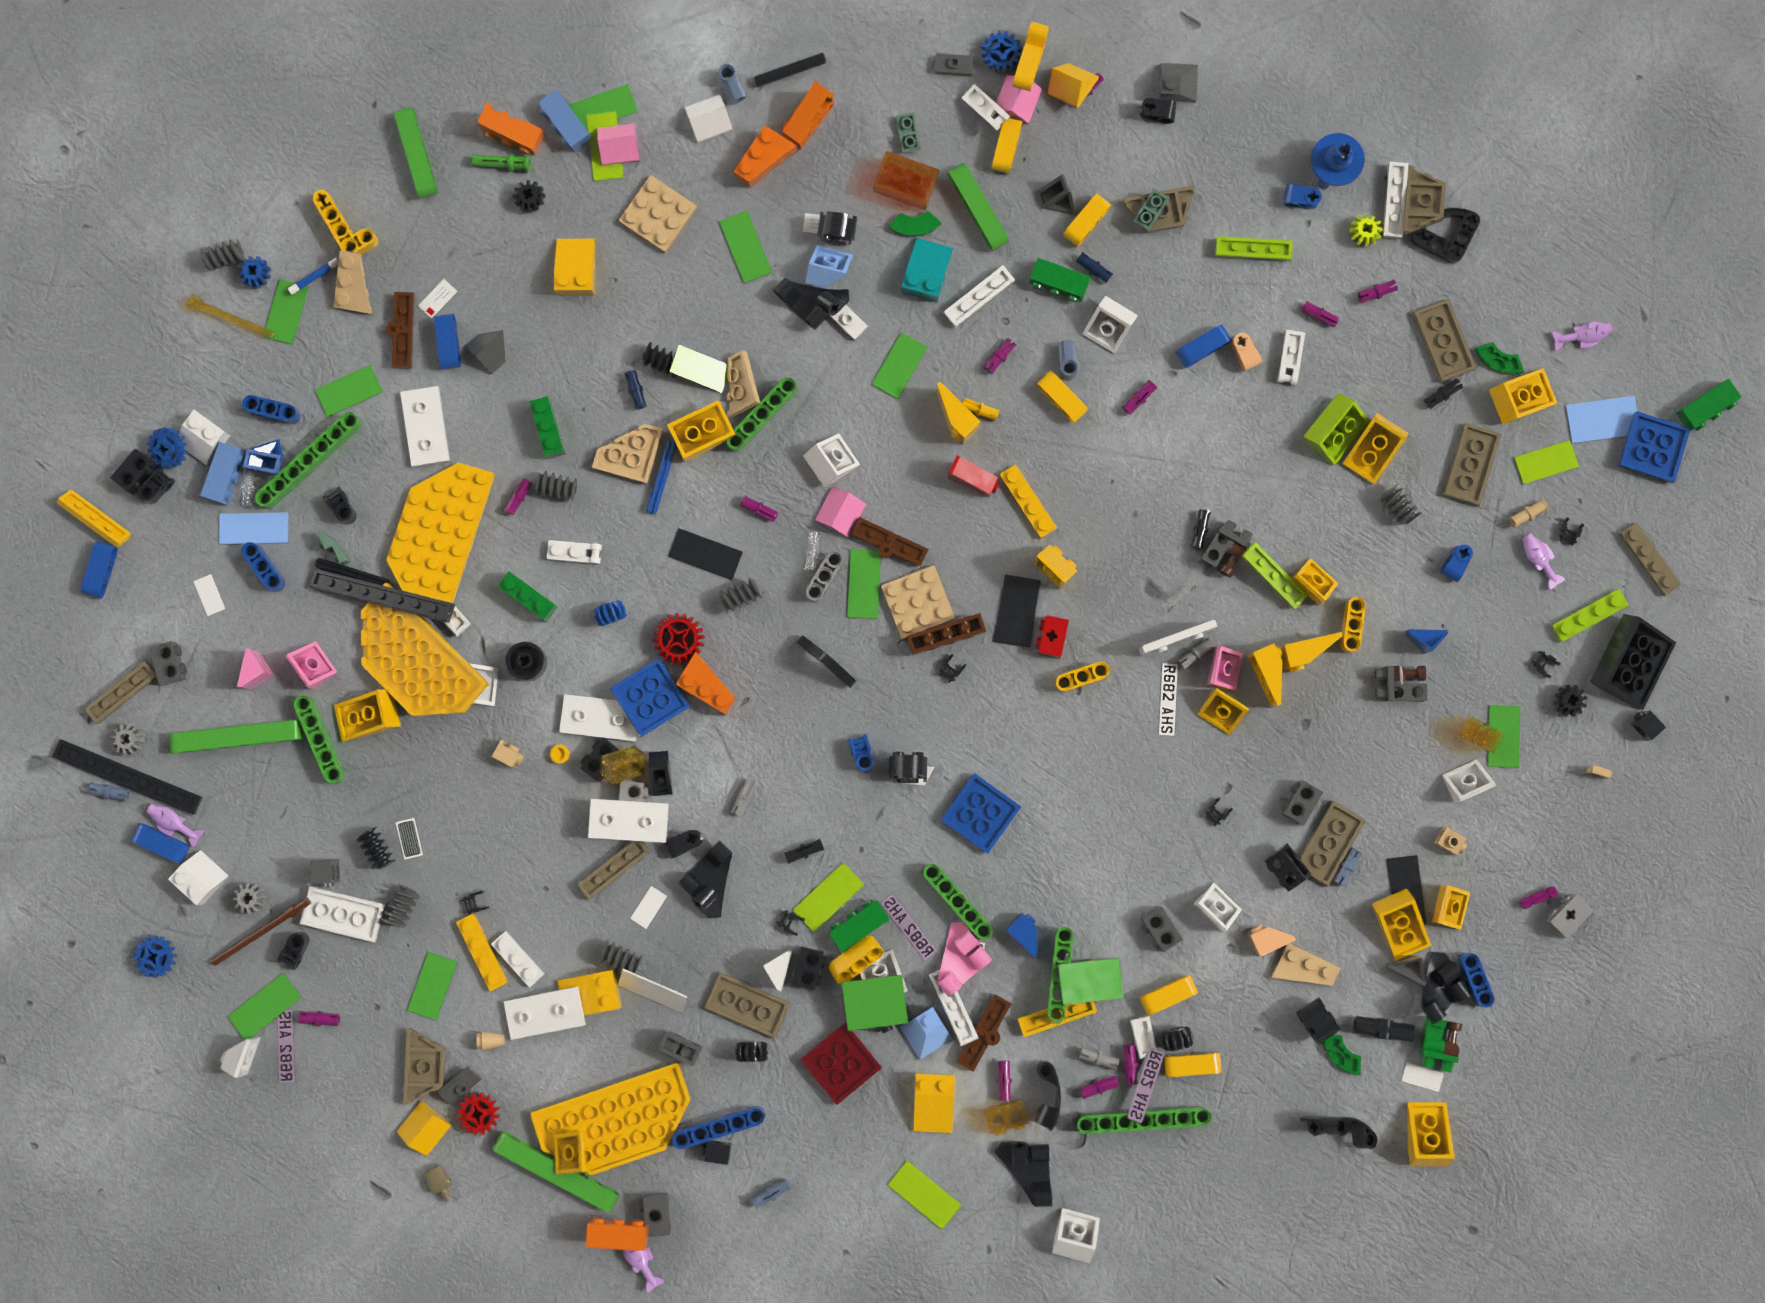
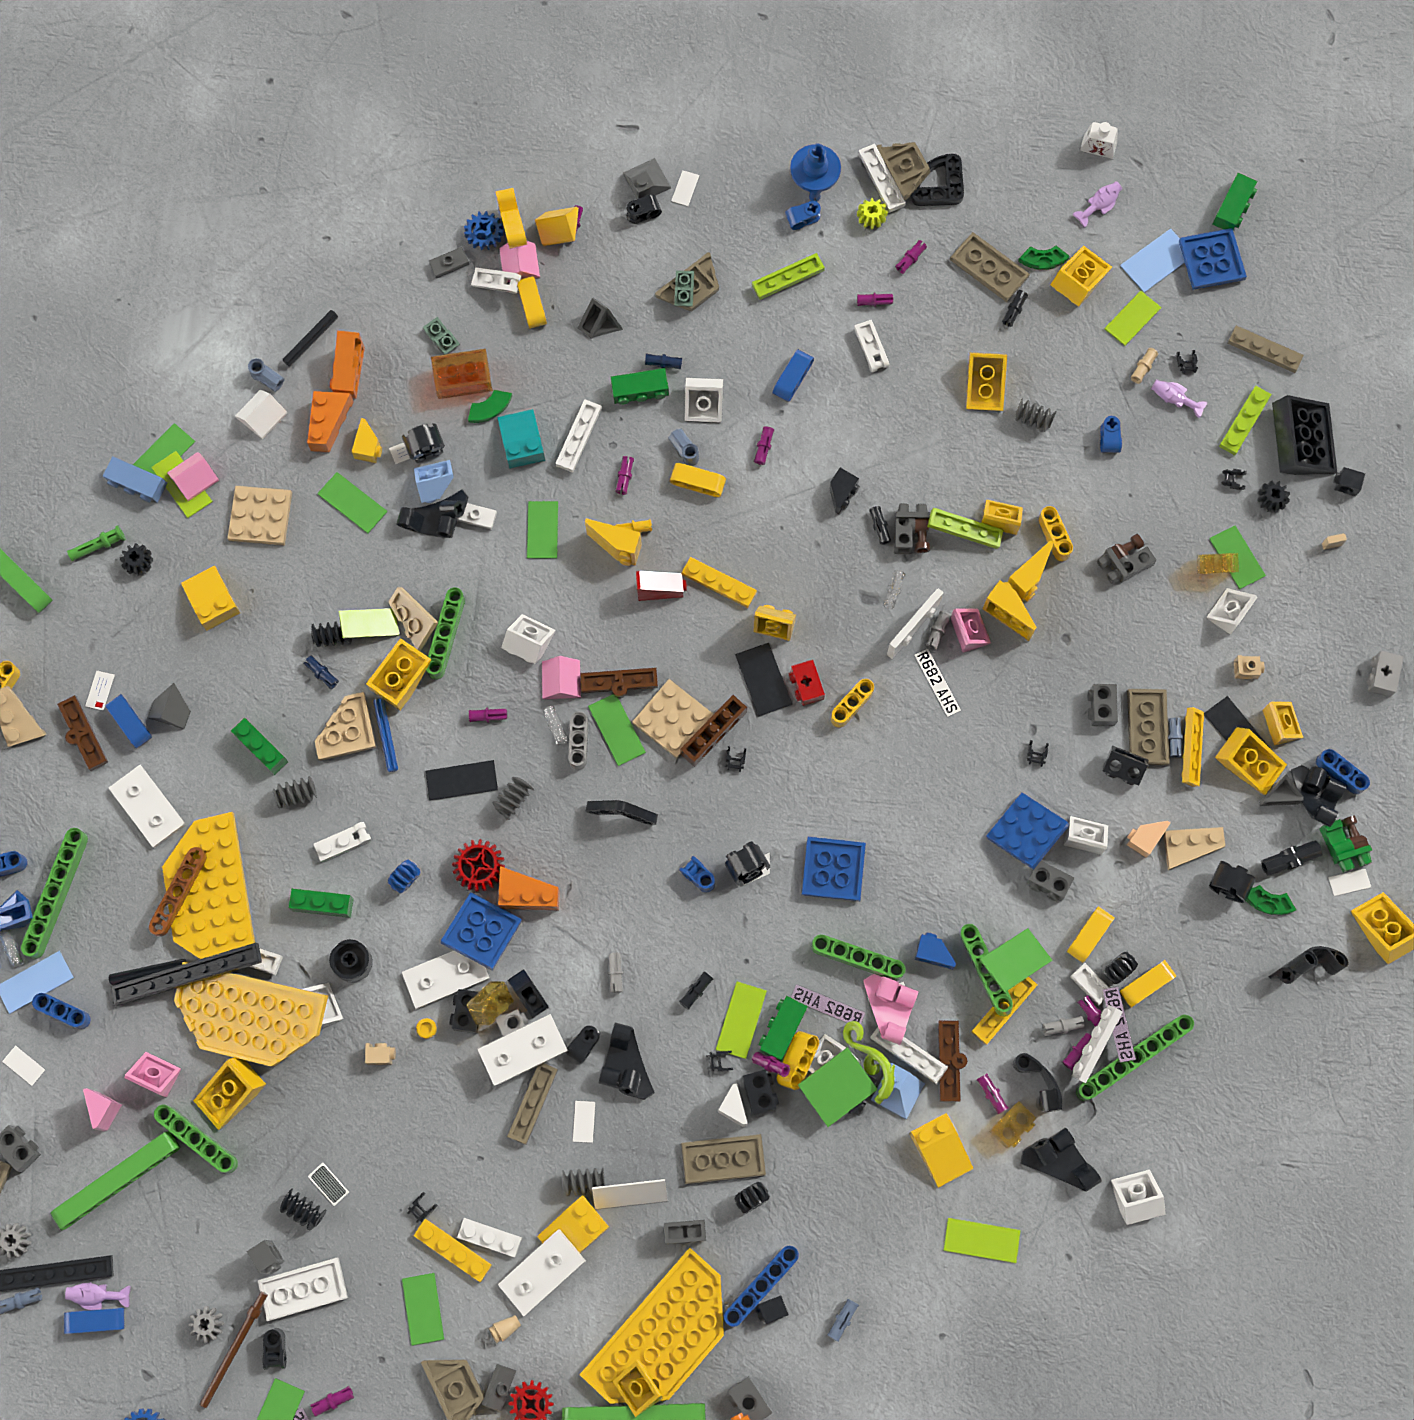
camera: 30 degrees left, 10 degrees down
(198, 878) = (147, 1332): white slope -> none
(330, 544) = (114, 956): sand green slope -> none
(338, 503) = (104, 915): black piece -> none
(348, 390) = (60, 813): bright green piece -> none
(401, 906) = (354, 1249): dark grey piece -> none
(402, 519) = (169, 898): none -> dark orange beam
(510, 130) = (89, 513): orange wedge -> none
(518, 496) = (265, 820): magenta axle -> none
(786, 199) = (366, 444): none -> yellow slope
(831, 950) = (771, 1064): none -> magenta pin
(841, 1063) = (838, 1162): dark red plate -> none
(921, 992) = (869, 1066): none -> lime plant
(978, 206) = (535, 364): bright green beam -> none
(1087, 220) = (634, 326): yellow beam -> none
(1116, 1091) = (1094, 1048): none -> white plate
(1167, 875) = (1027, 830): none -> blue plate
(1185, 476) = (841, 488): none -> black slope
(1209, 109) = (685, 188): none -> white sticker
(1222, 711) = (990, 664): yellow slope -> none
(1247, 353) = (832, 362): light nougat piece -> none
(1336, 428) = (944, 382): lime slope -> none
(1357, 884) = (1193, 747): none -> yellow plate
(1426, 639) = (1123, 512): blue slope -> none
(1471, 464) = (1073, 352): dark tan tile -> none
(1538, 897) = (1350, 673): magenta axle -> none
(1620, 275) = (1100, 140): none -> white torso

